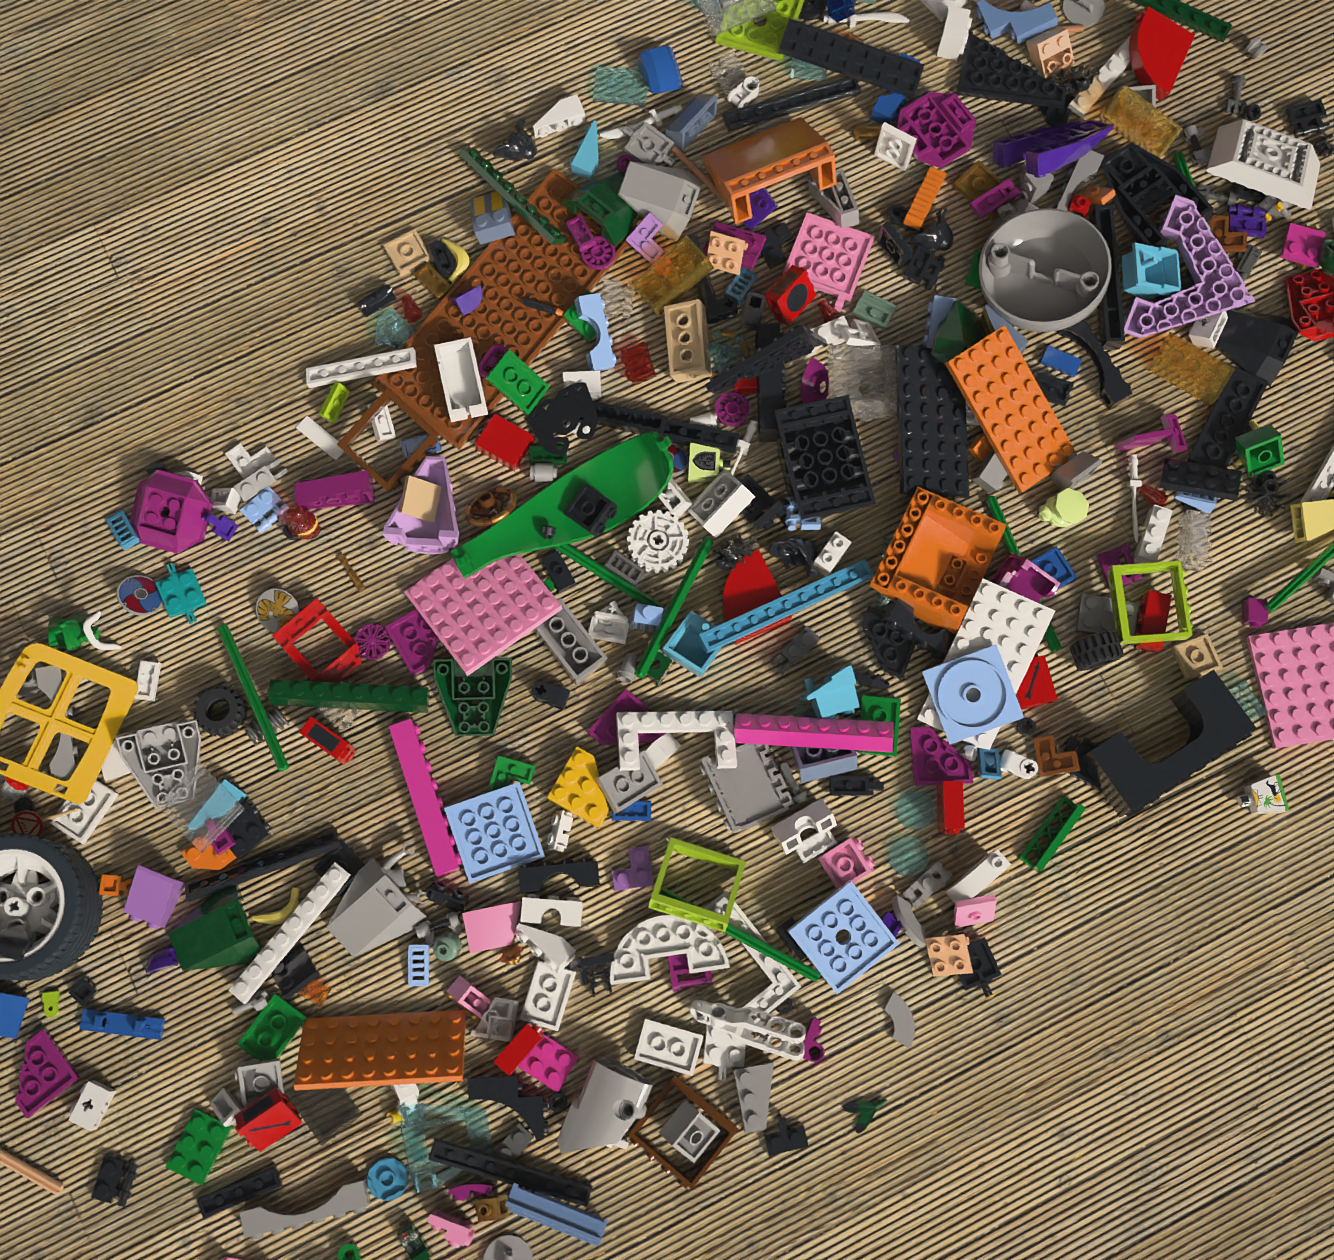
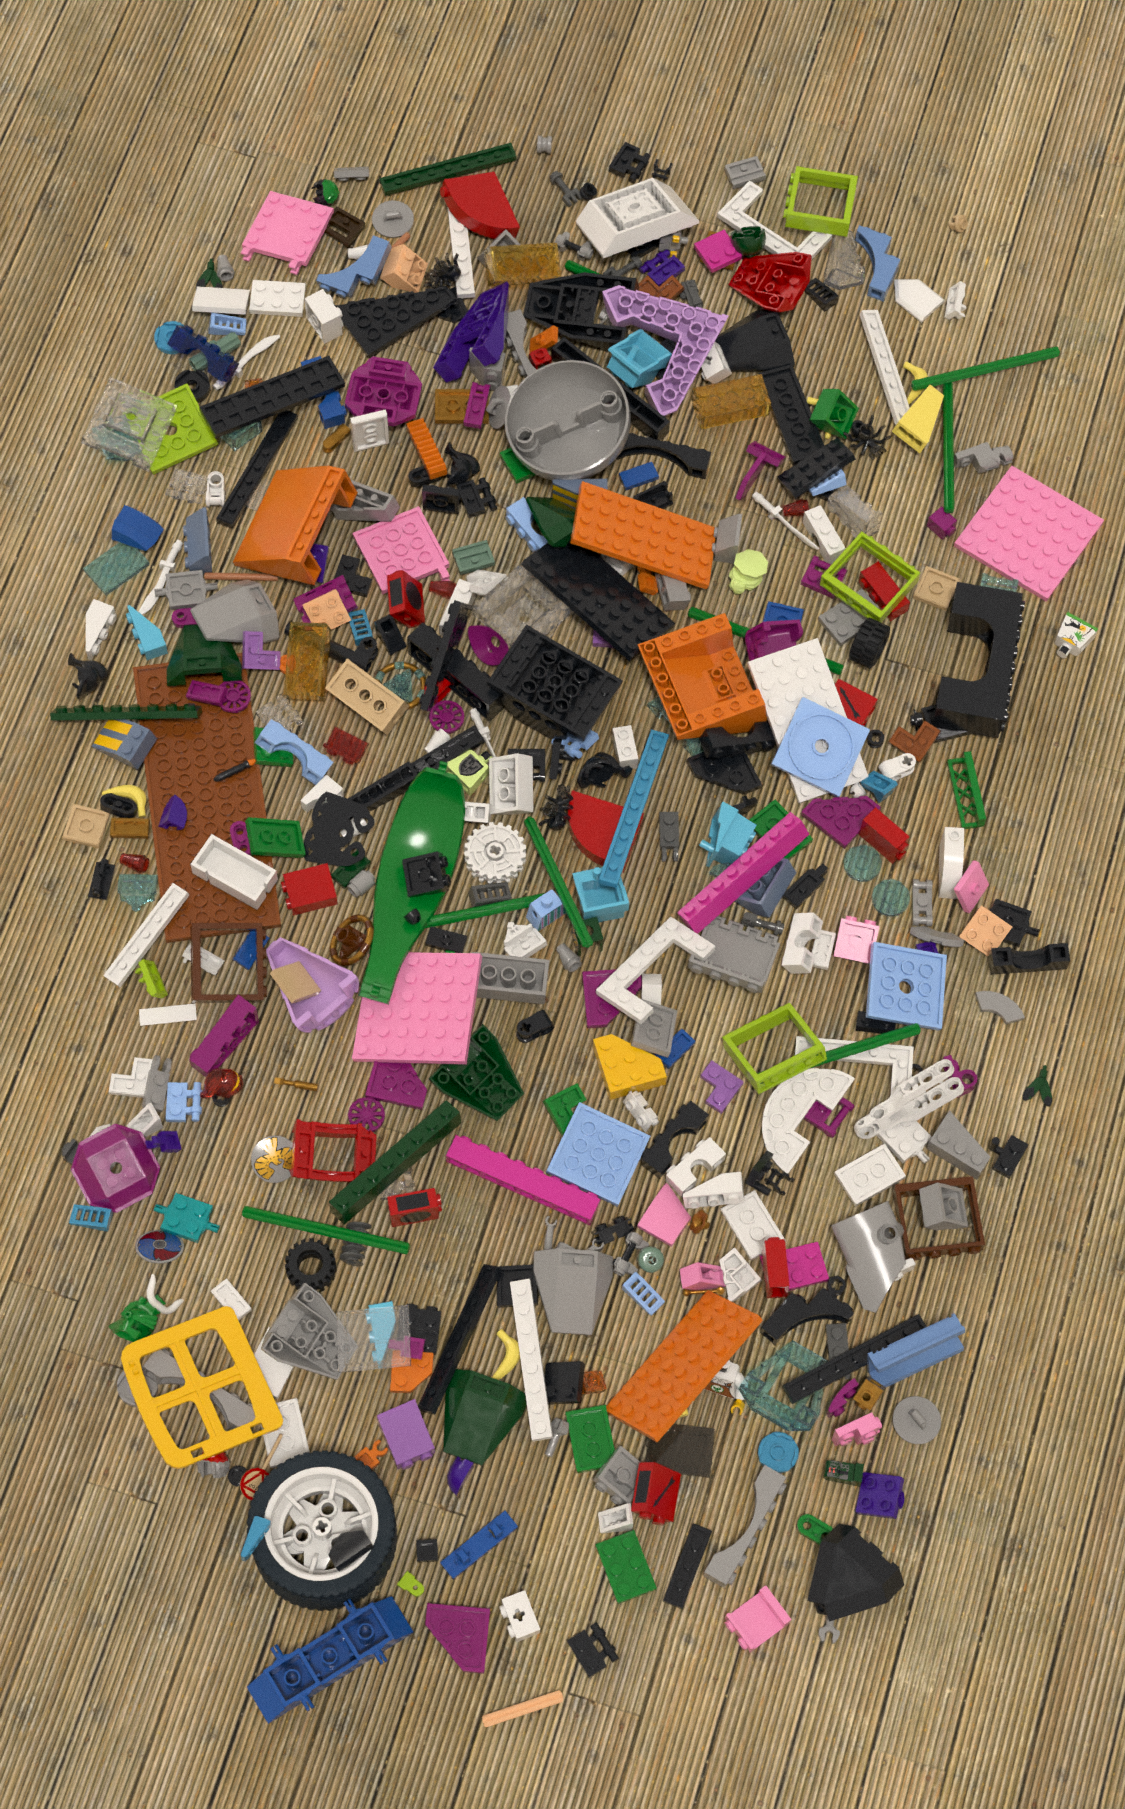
camera: 45 degrees left, 10 degrees down
(959, 1010) = (1051, 957): none -> black arch

